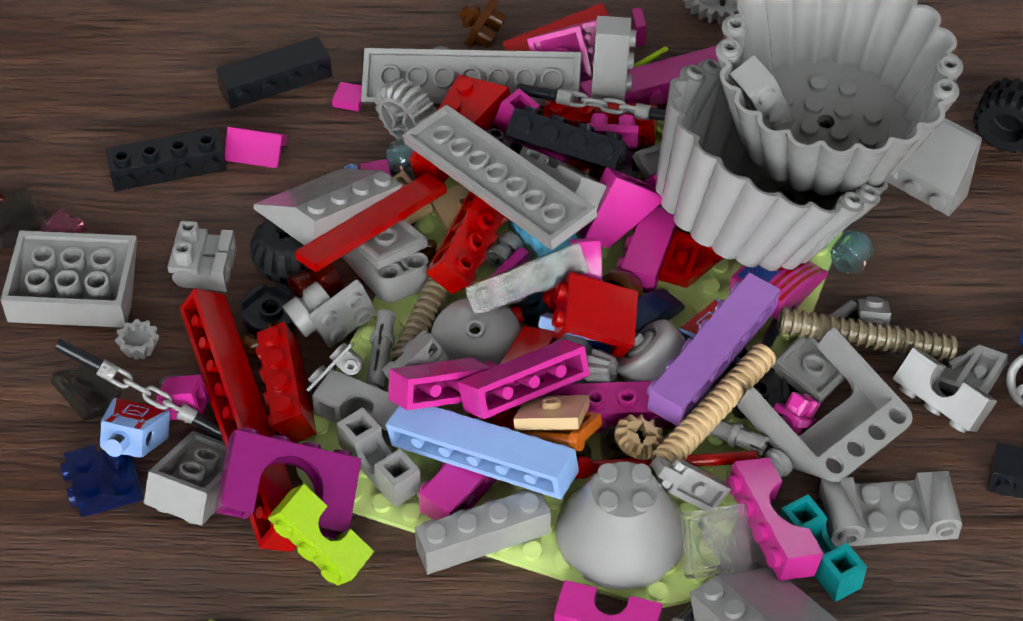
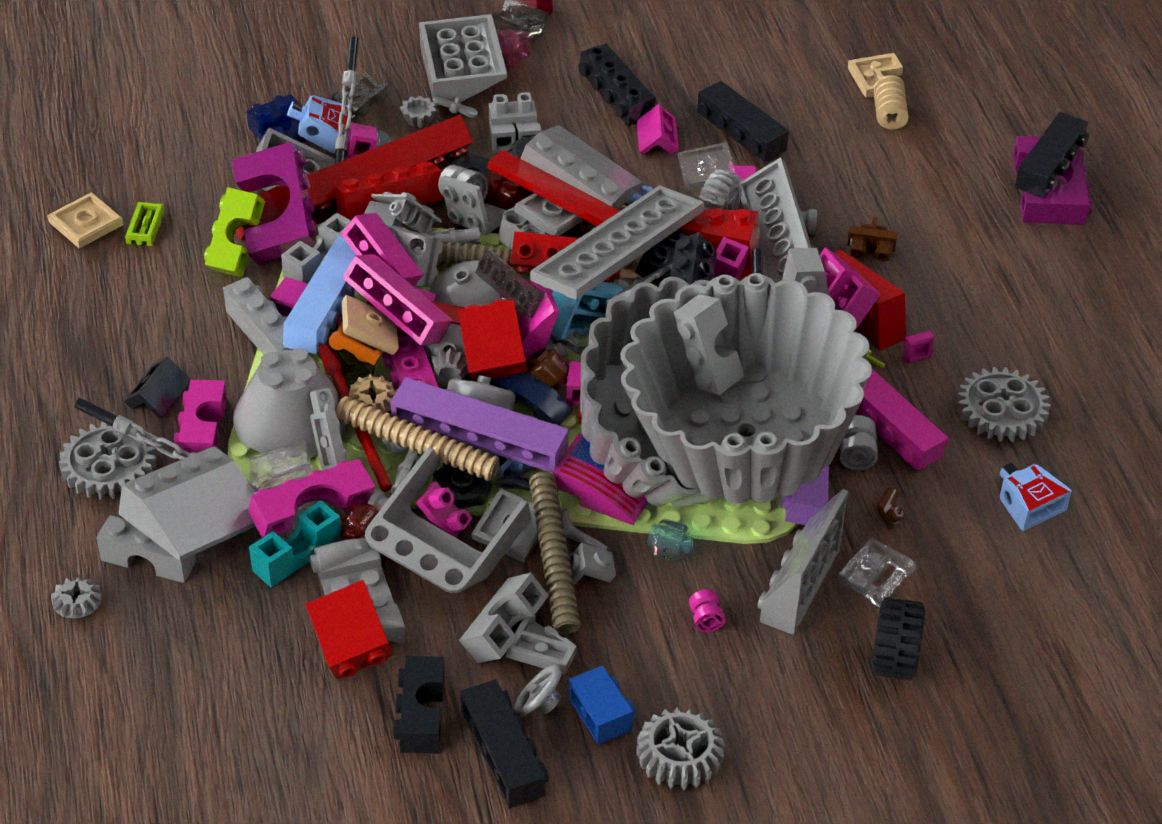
camera: 75 degrees right, 5 degrees down
(141, 304) = (455, 106): none -> light grey piece
(327, 117) = (701, 162): none -> clear plate
(797, 484) = (356, 521): none -> clear red head
(945, 243) = (707, 613): none -> dark pink wheel
(951, 513) = (349, 630): none -> red panel

